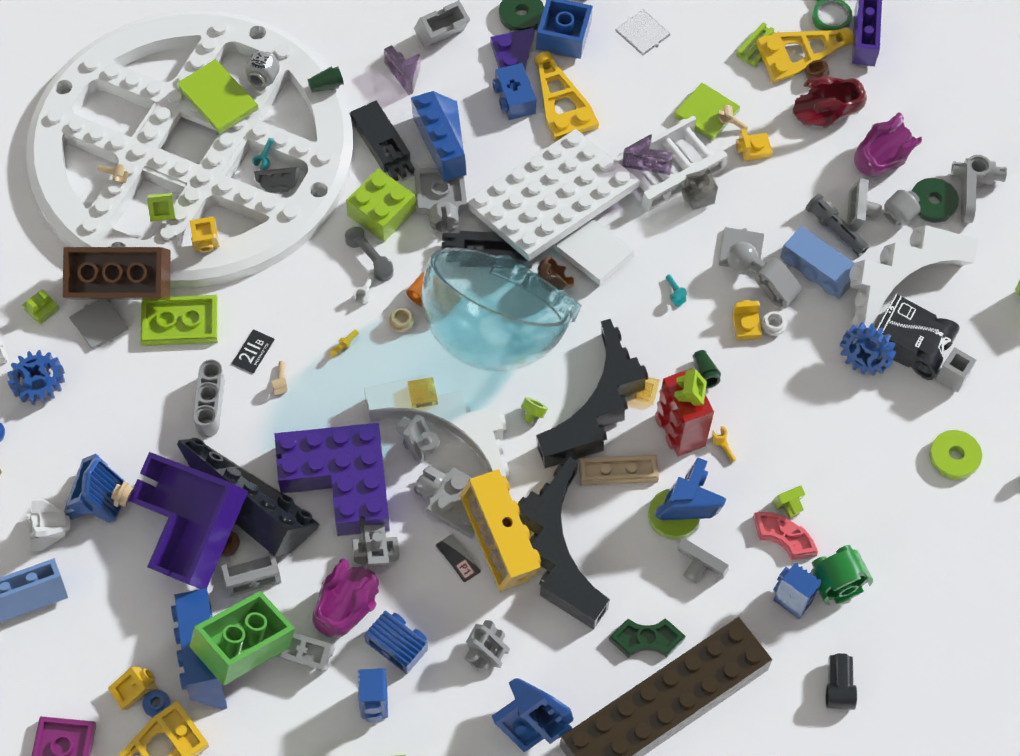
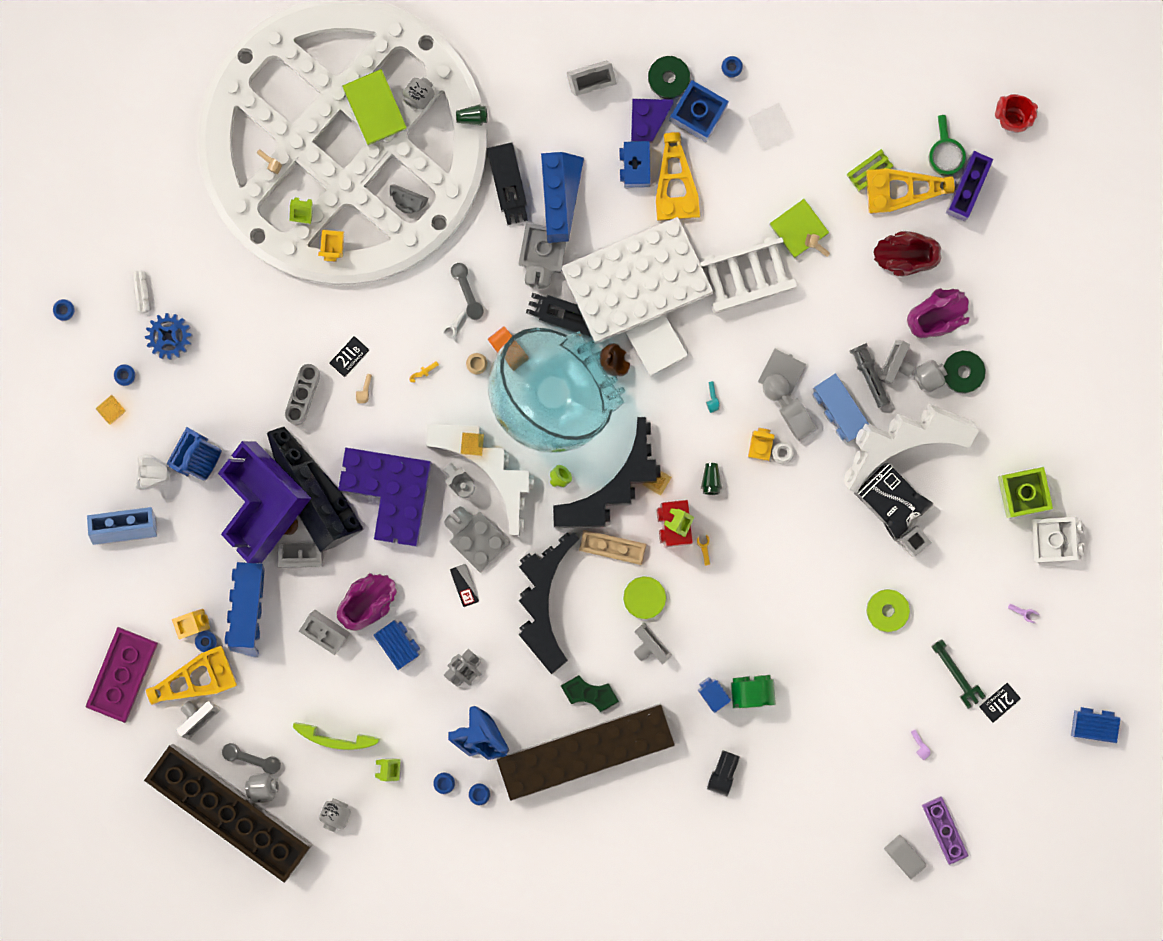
camera: 20 degrees right, 25 degrees up
(40, 306) = (185, 268): lime tile -> none
(98, 323) = (229, 295): light grey piece -> none
(116, 273) = (251, 264): reddish brown brick -> none
(121, 494) = (214, 467): tan plate -> none
(179, 320) = (295, 311): lime tile -> none
(241, 637) = (277, 622): bright green brick -> none
(263, 156) = (402, 173): teal hand -> none
(373, 694) = (366, 686): blue brick -> none
(378, 542) = (401, 561): light grey piece -> none
(381, 205) = (488, 250): lime brick -> none
(404, 70) = (547, 118): clear purple slope -> none
(500, 530) = (498, 583): yellow brick -> none
(642, 157) = (721, 269): clear purple slope -> none
(688, 499) = (652, 598): blue piece -> none
(700, 189) = (762, 311): clear smoke brick -> none
(753, 146) = (827, 275): yellow bracket -> none
(786, 534) = (727, 638): coral tile -> none
(790, 501) = (738, 614): lime tile -> none
(817, 69) = (910, 214): reddish brown tile -> none
(867, 349) = (847, 504): blue gear -> none
(975, 173) = (1021, 362): light grey piece -> none

